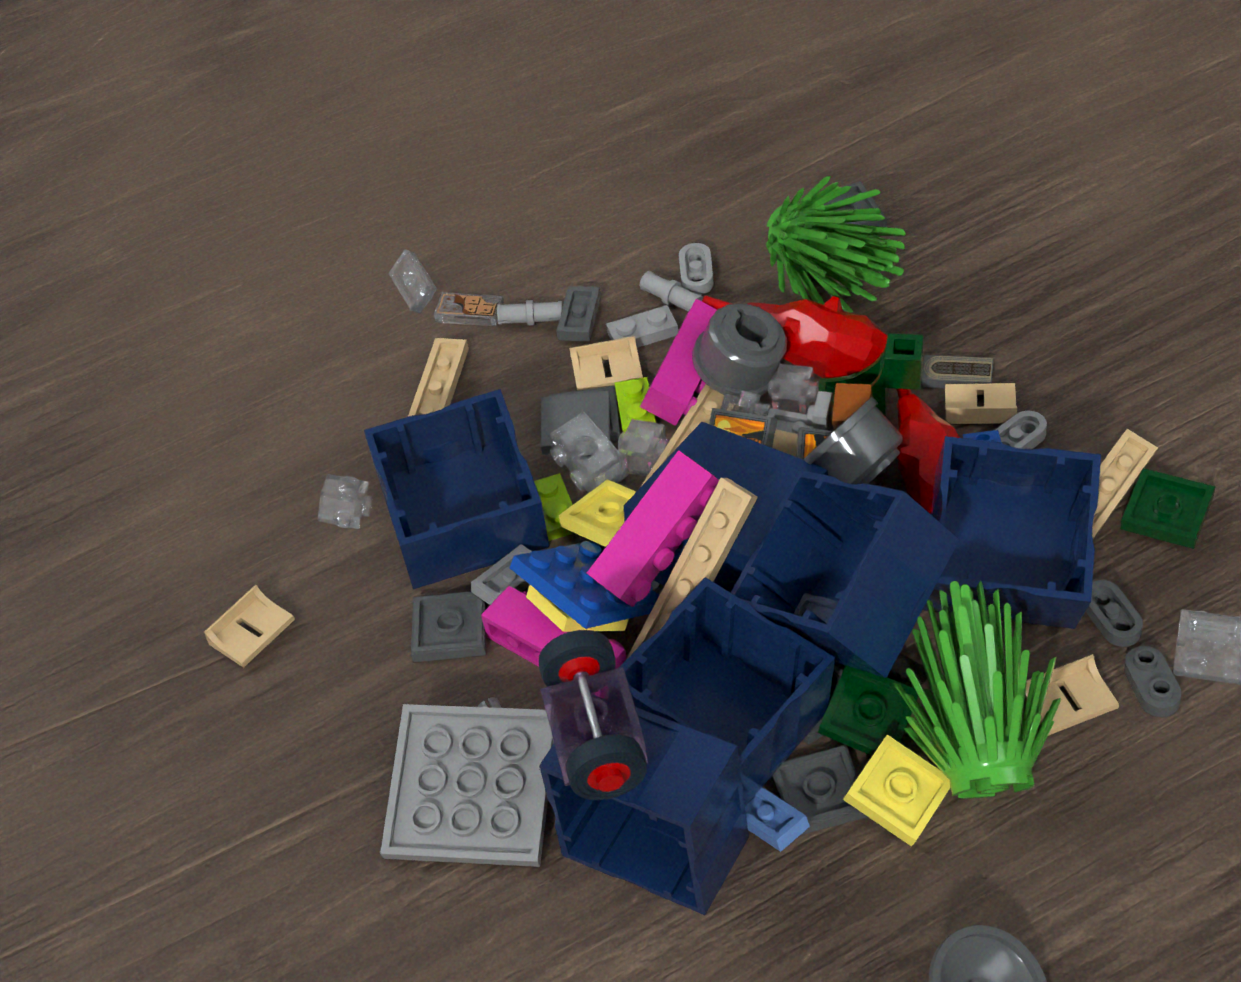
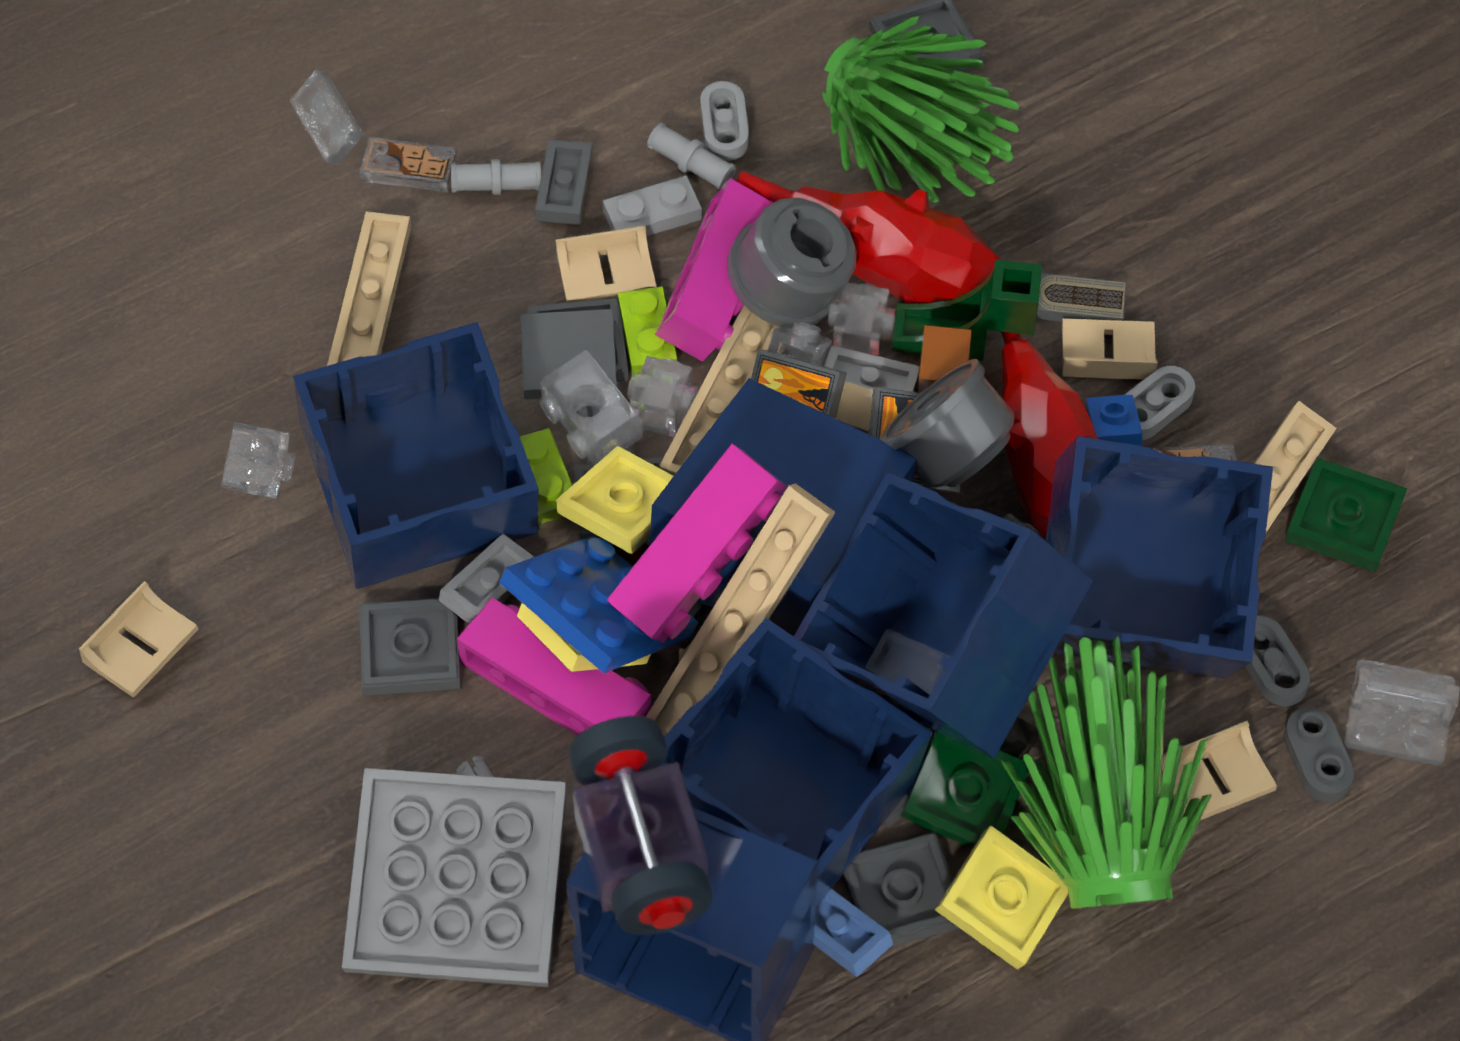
camera: 10 degrees left, 10 degrees up
(821, 413) = (901, 362): light grey plate -> none

